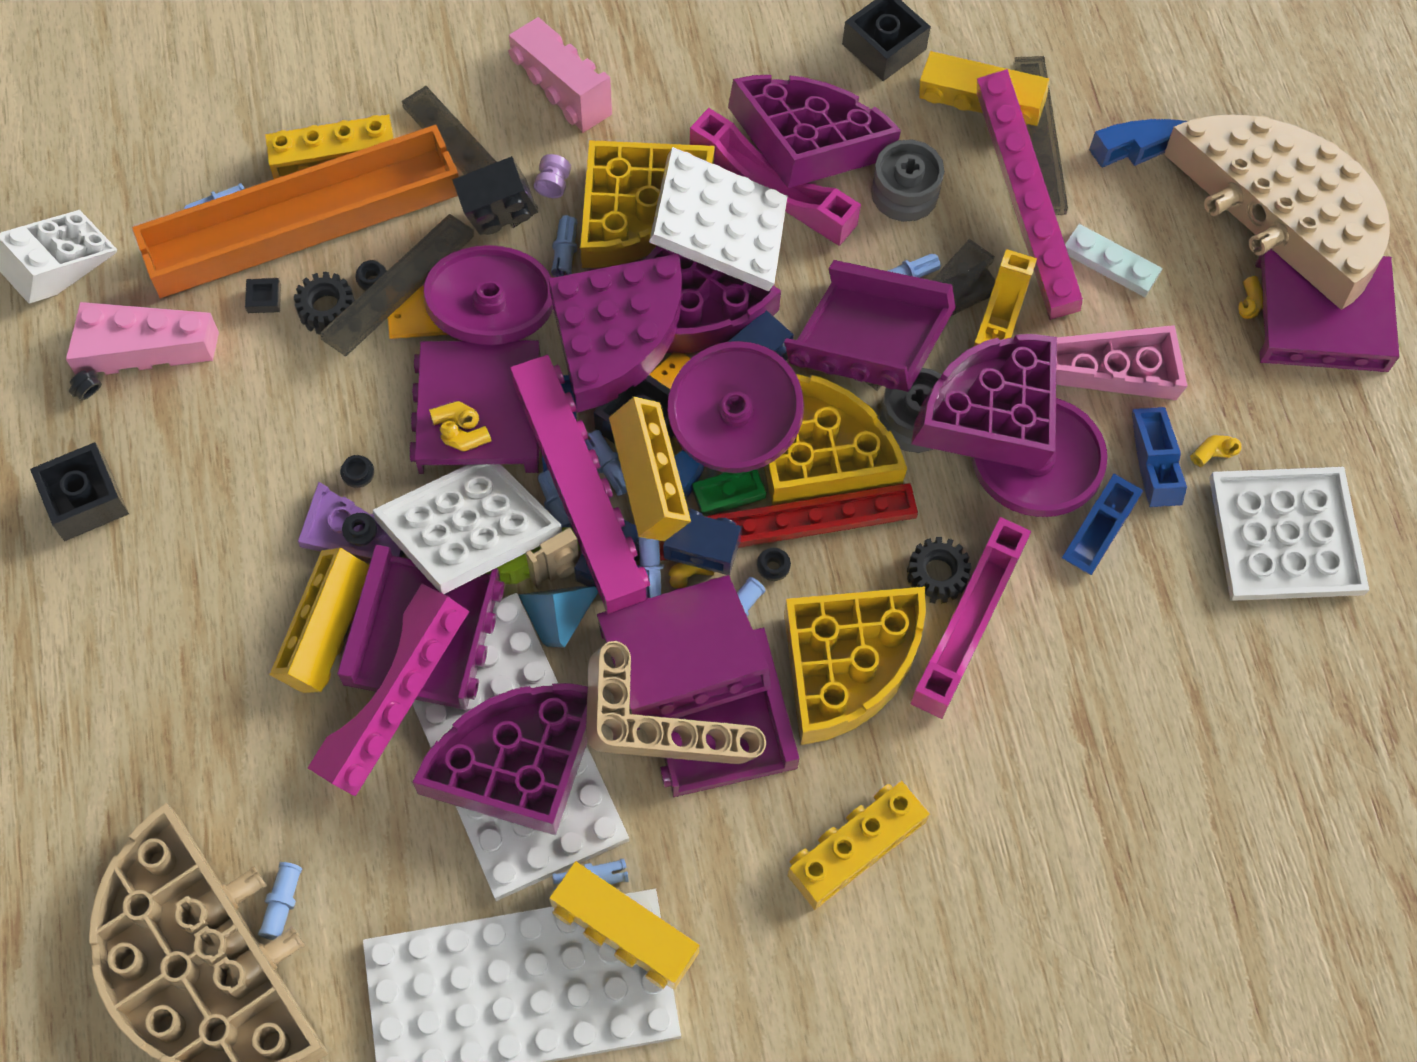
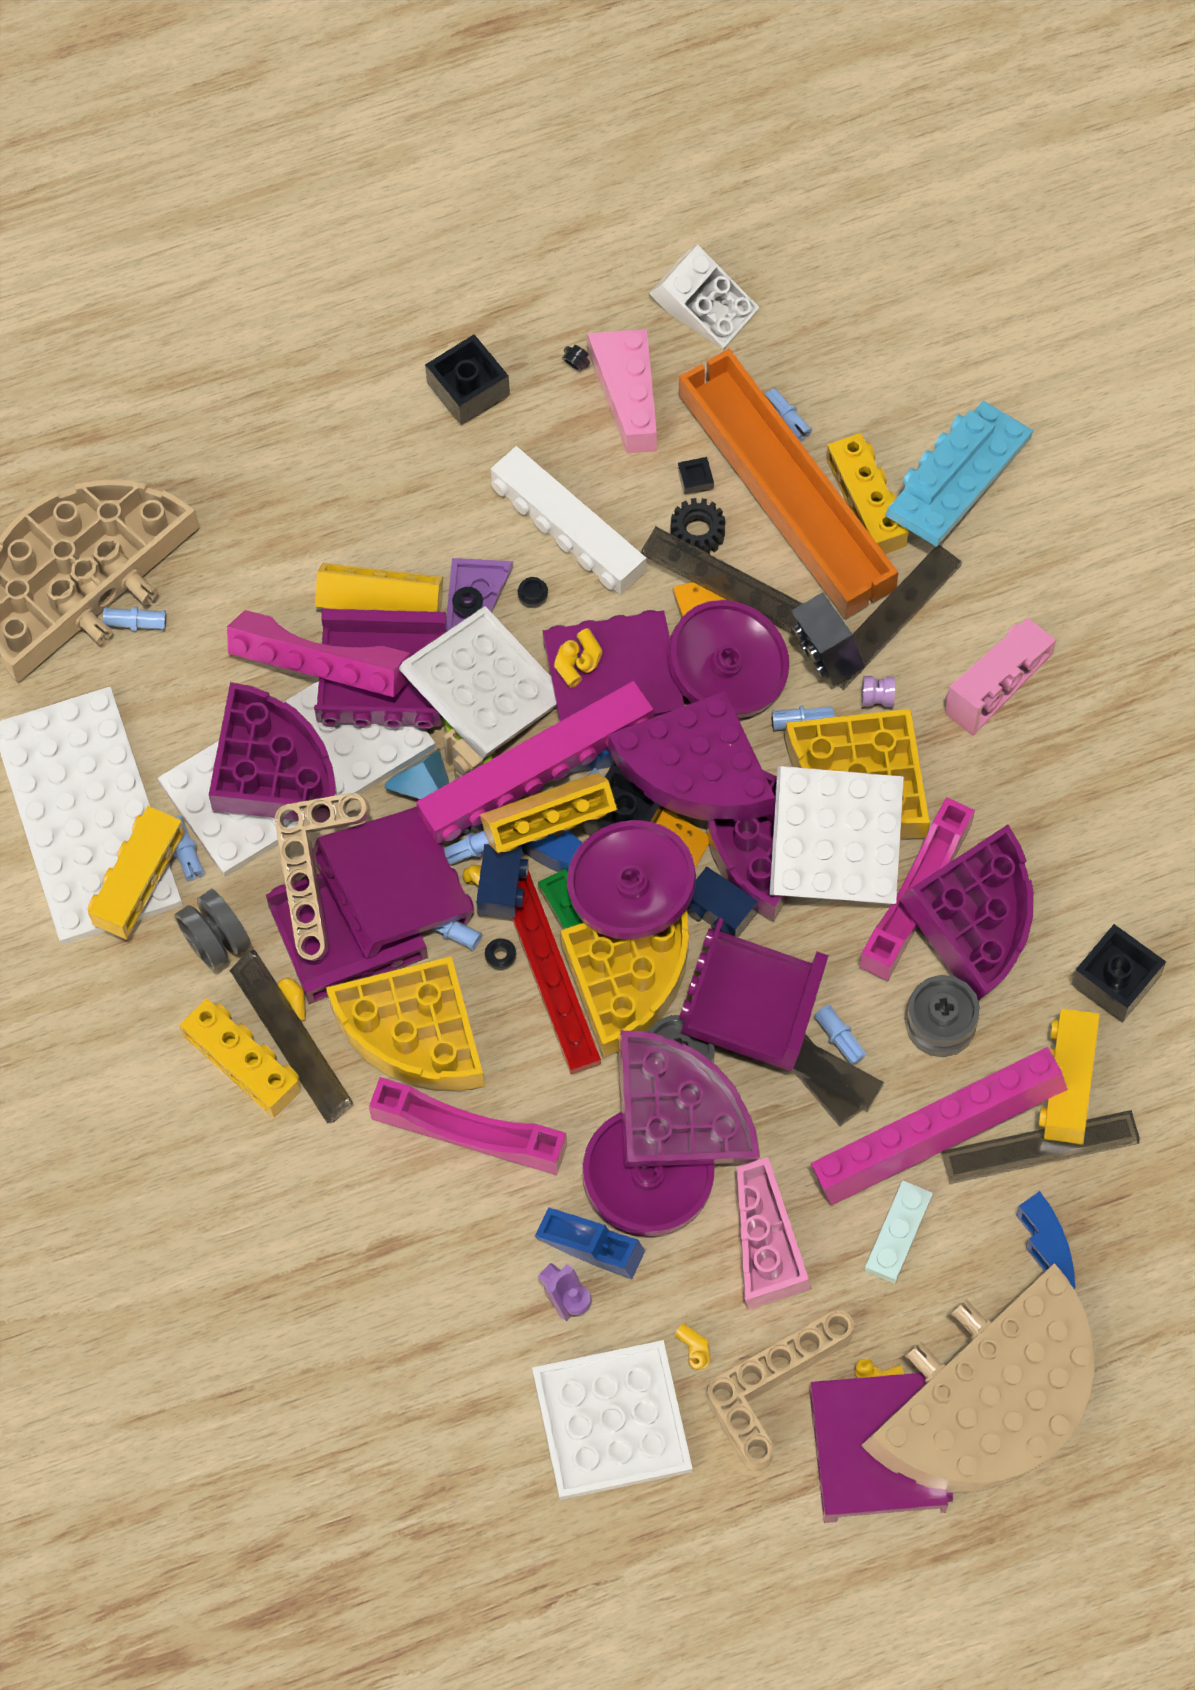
camera: 85 degrees right, 0 degrees up
(282, 422) = (568, 521): none -> white brick
(334, 63) = (957, 471): none -> medium azure plate
(368, 269) = (740, 553): black plate -> none
(708, 850) = (212, 929): none -> dark grey wheel
(792, 778) = (294, 994): none -> yellow arm
(838, 788) = (291, 1036): none -> clear smoke tile
(939, 551) = (512, 1079): black tyre -> none
(1006, 297) = (811, 1126): yellow arch -> none
(1158, 457) = (674, 1289): blue slope -> none
(1163, 547) = (565, 1290): none -> medium lavender hips
(1256, 388) = (770, 1377): none -> tan beam

